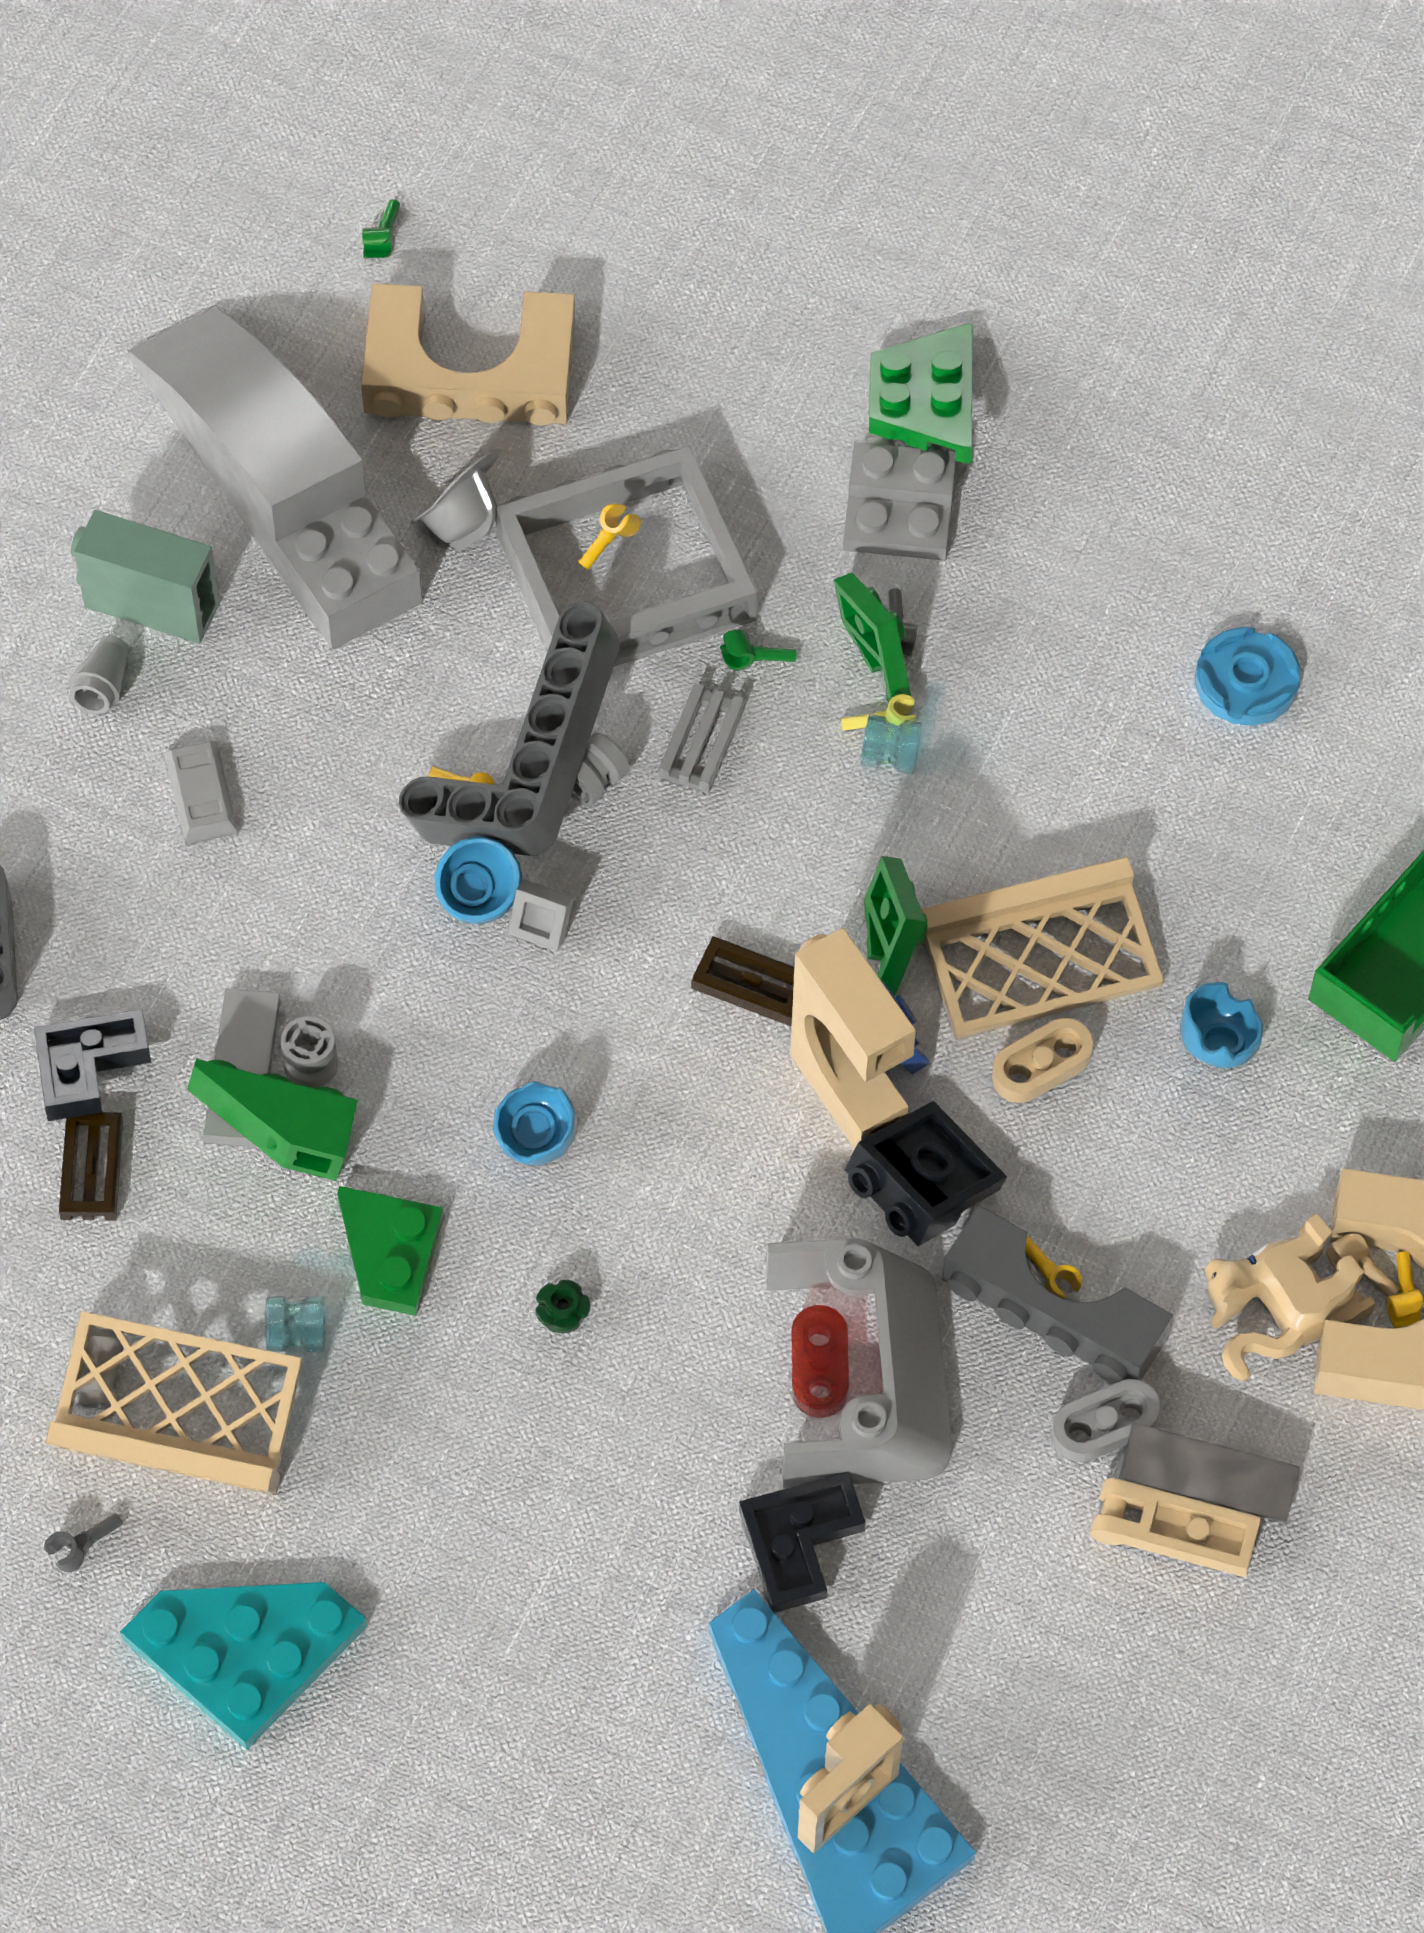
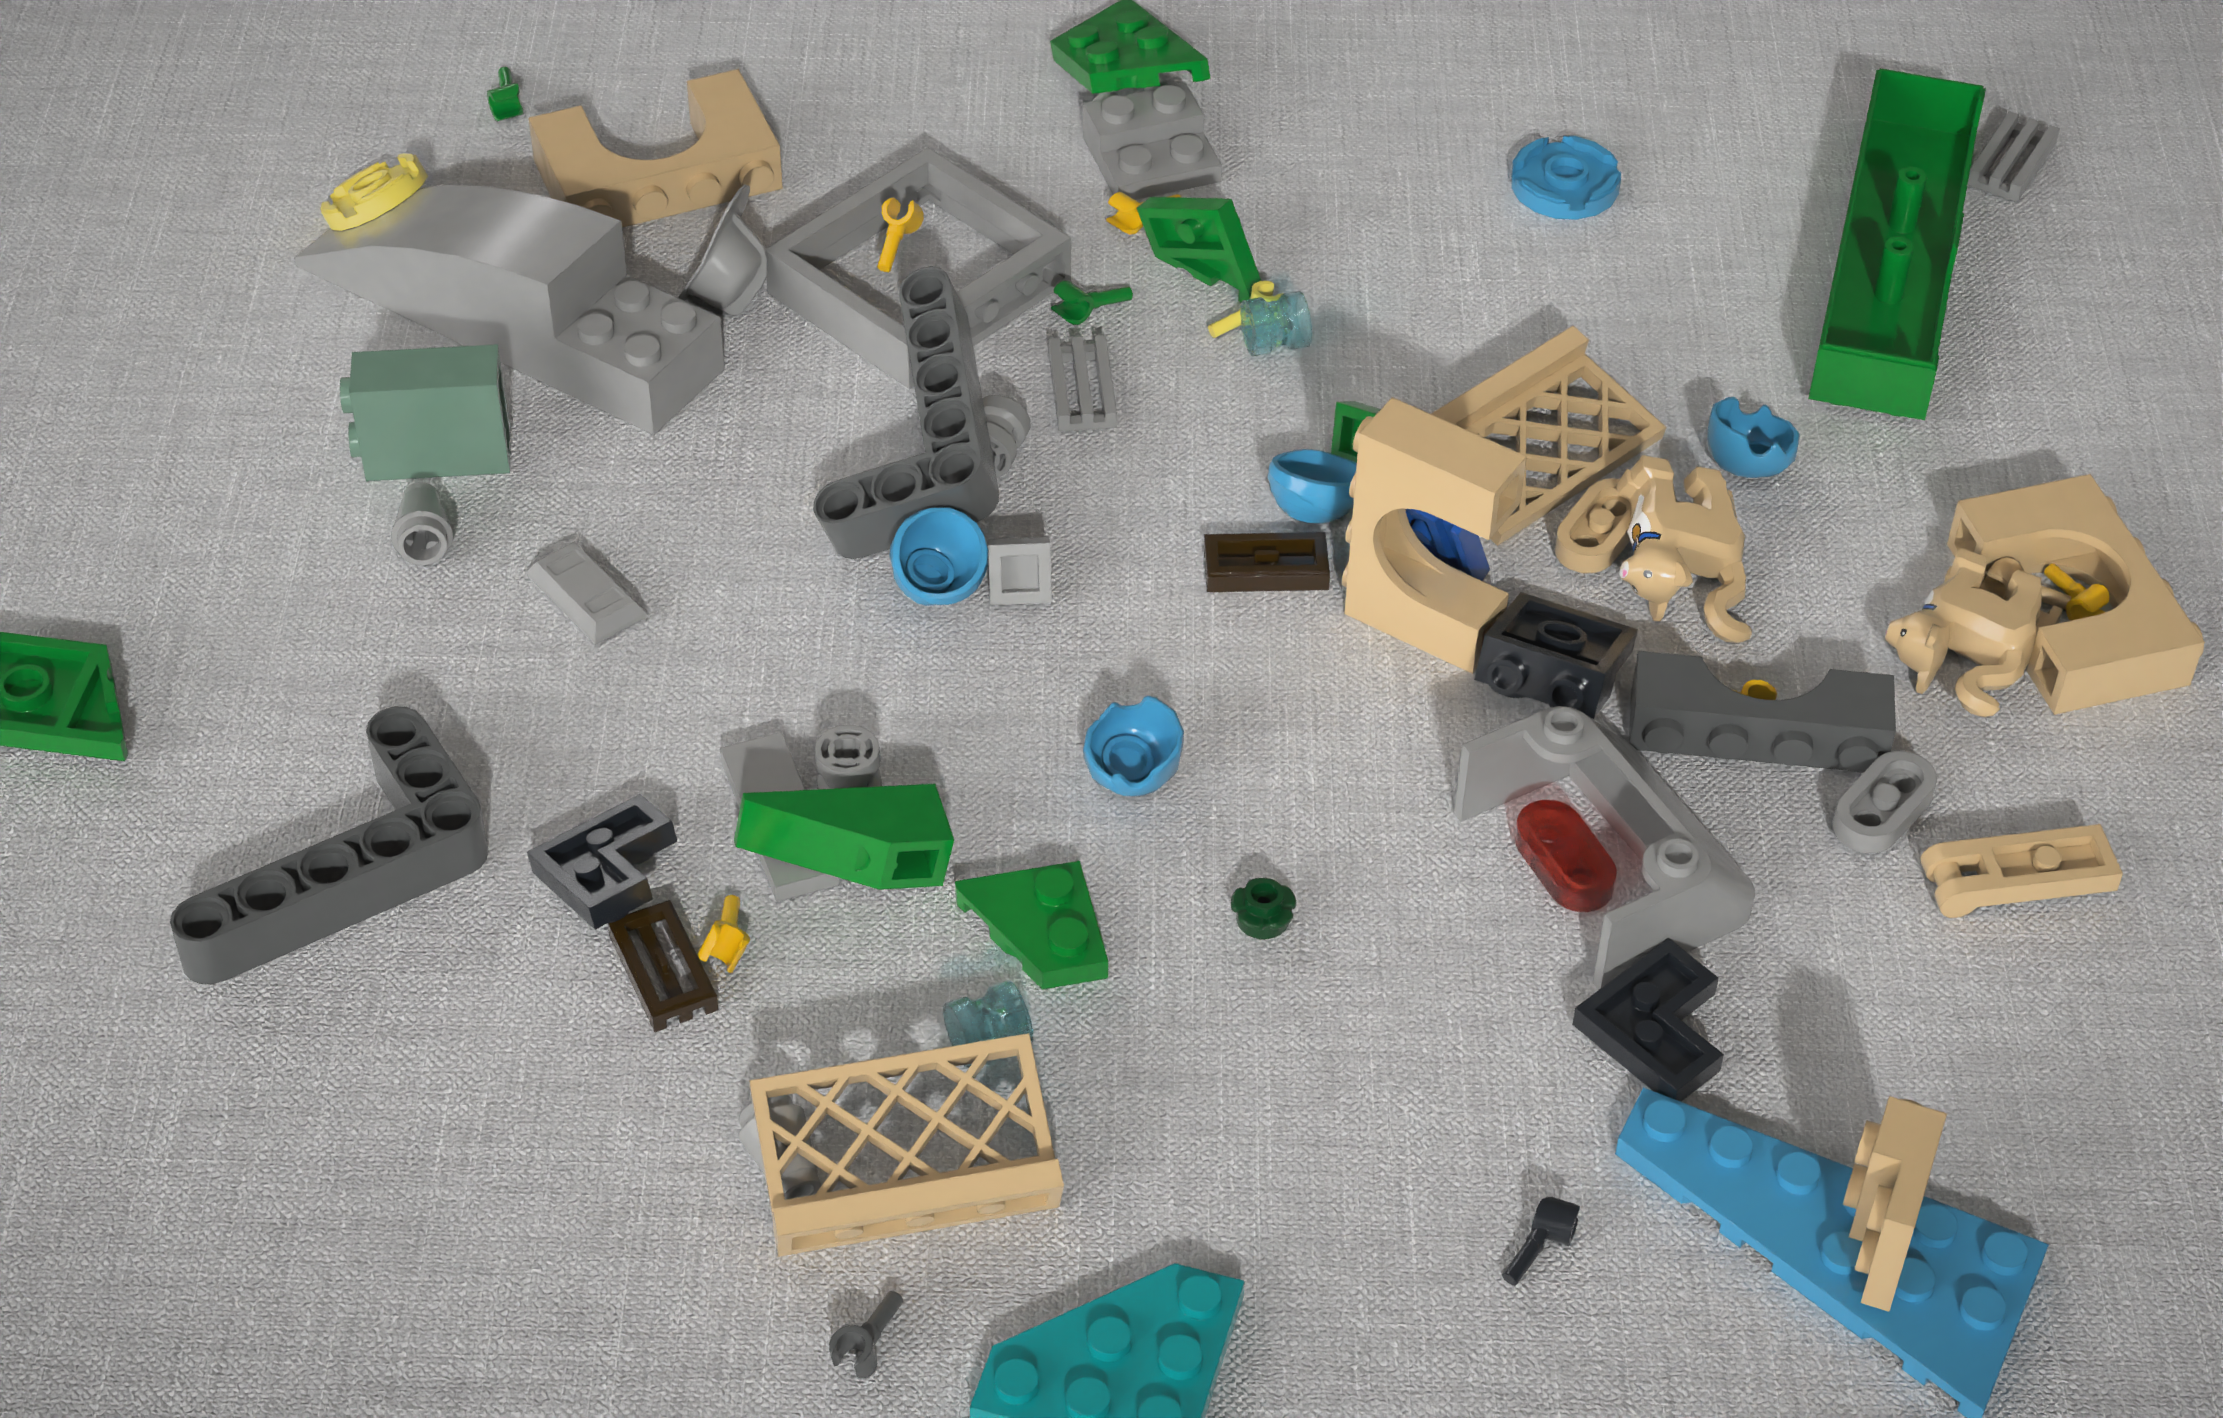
camera: 25 degrees left, 15 degrees down
(146, 1163) = (725, 938): none -> yellow hand
(214, 312) = (373, 192): none -> light yellow tile
(618, 1667) = (1553, 1221): none -> black hand
(824, 912) = (1312, 484): none -> dark azure piece
(837, 565) = (1127, 217): none -> yellow hand
(1097, 1105) = (1683, 539): none -> tan animal
(1209, 1472) = (2019, 802): tile -> none

